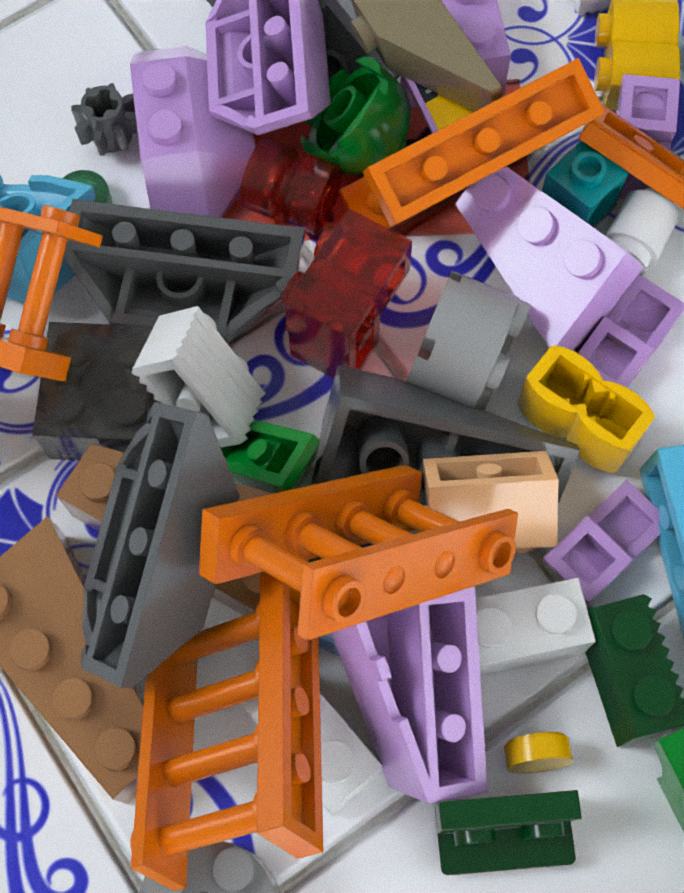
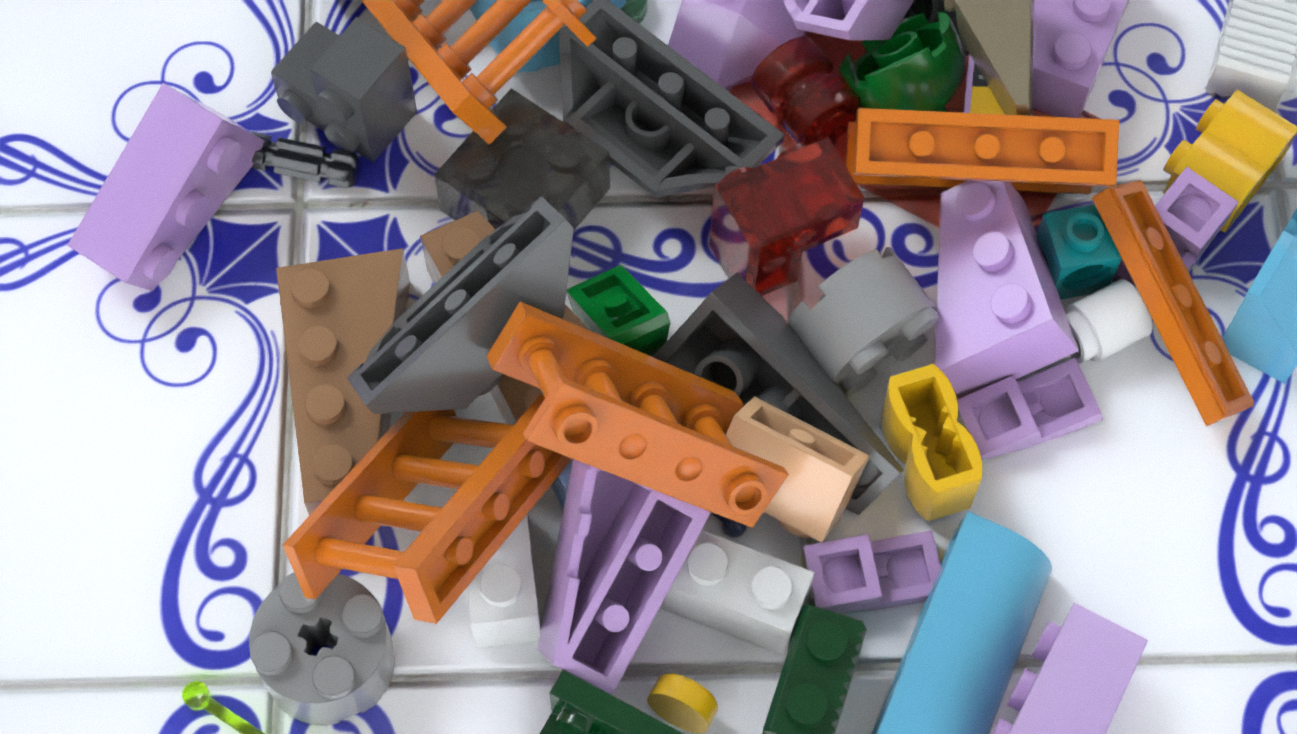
camera: 30 degrees right, 5 degrees down
(197, 370) = (609, 207): white brick -> none

